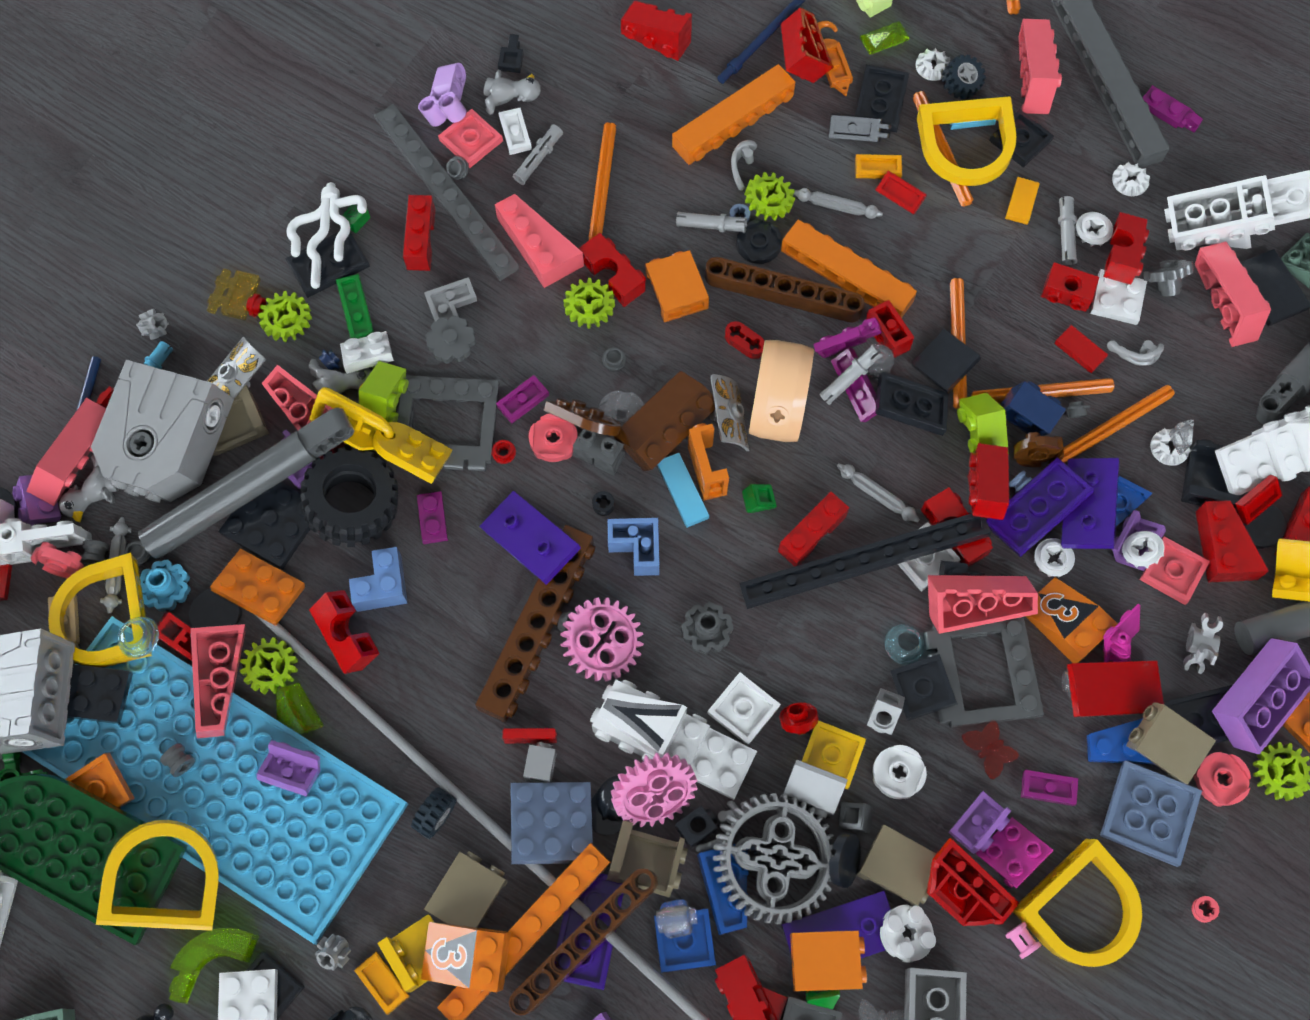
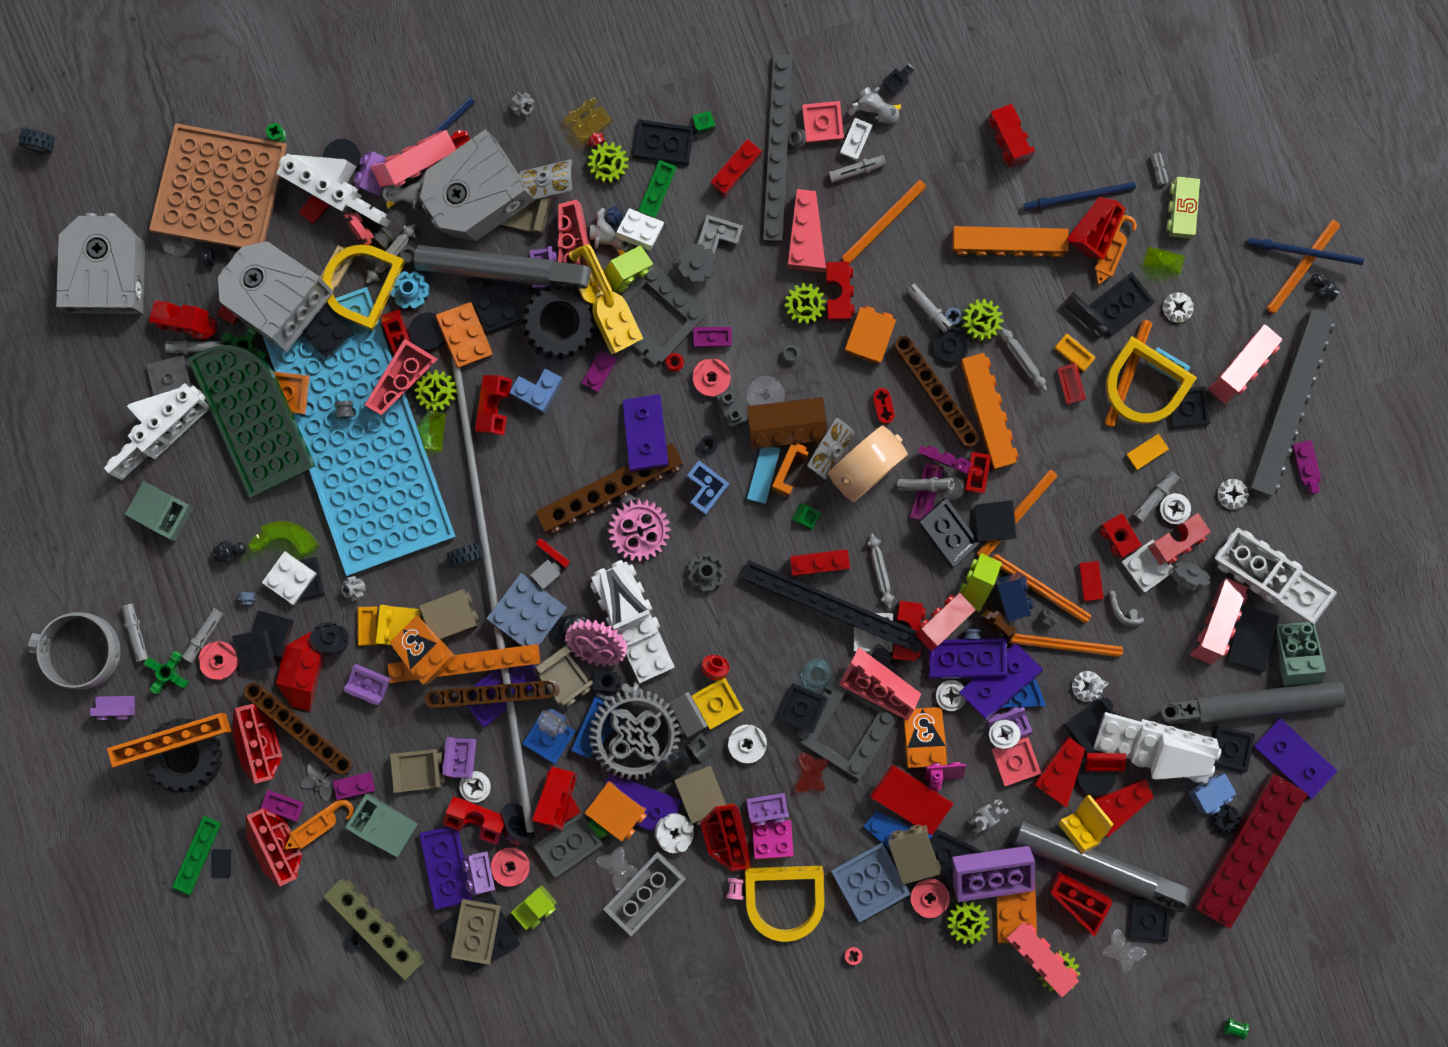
camera: 40 degrees right, 15 degrees up
(147, 642) = (378, 324): clear light blue piece -> none
(155, 917) = (269, 492): yellow window -> none
(159, 355) = (510, 129): medium azure pin -> none
(289, 768) = (403, 465): medium lavender bracket -> none
(329, 208) = (689, 105): white plant -> none
(445, 96) = (830, 77): lavender piece -> none
(582, 416) = (736, 383): reddish brown plate -> none
(743, 708) = (688, 636): white plate -> none
(745, 150) = (994, 271): light grey piece -> none
(889, 703) = (768, 704): light grey brick -> none
(965, 68) = (1192, 338): black wheel -> none
(1049, 787) = (825, 822): magenta plate -> none

